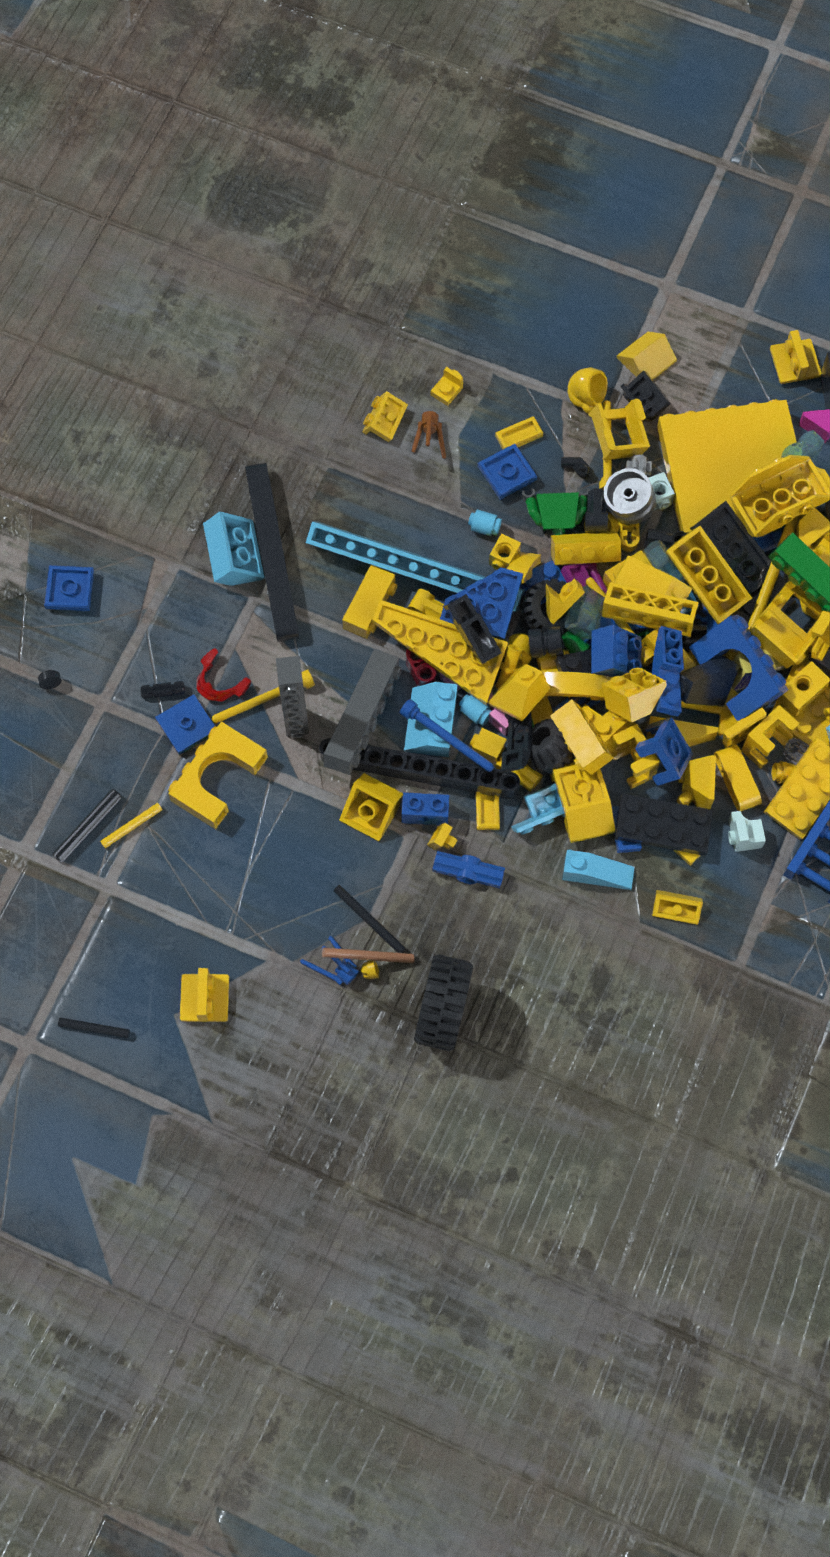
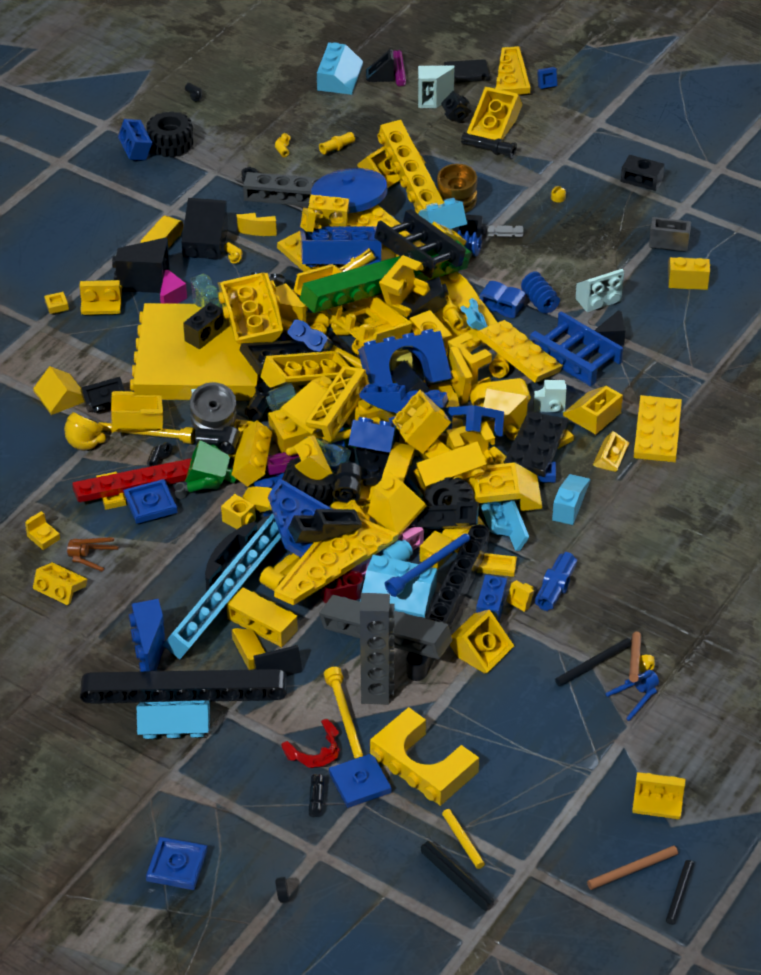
camera: 80 degrees left, 25 degrees down
(117, 982) = (632, 867): none -> nougat bar
(313, 627) = (284, 659): none -> black slope
(319, 503) = (147, 633): none -> blue slope
(331, 599) = (247, 645): none -> yellow slope
(443, 1002) = (702, 576): black tyre -> none
(444, 550) = (226, 549): none -> black slope
(484, 523) = (201, 522): medium azure brick -> none
(529, 445) = (115, 483): none -> red plate
(640, 463) = (178, 410): light grey gear -> none
(643, 791) = (497, 455): none -> yellow arm
(726, 952) = (657, 428): none -> yellow plate
(733, 879) = (595, 409): none -> yellow slope
(748, 457) = (204, 325): none -> black brick
(759, 571) = (310, 337): none -> blue brick
(778, 320) = (56, 302): none -> yellow plate

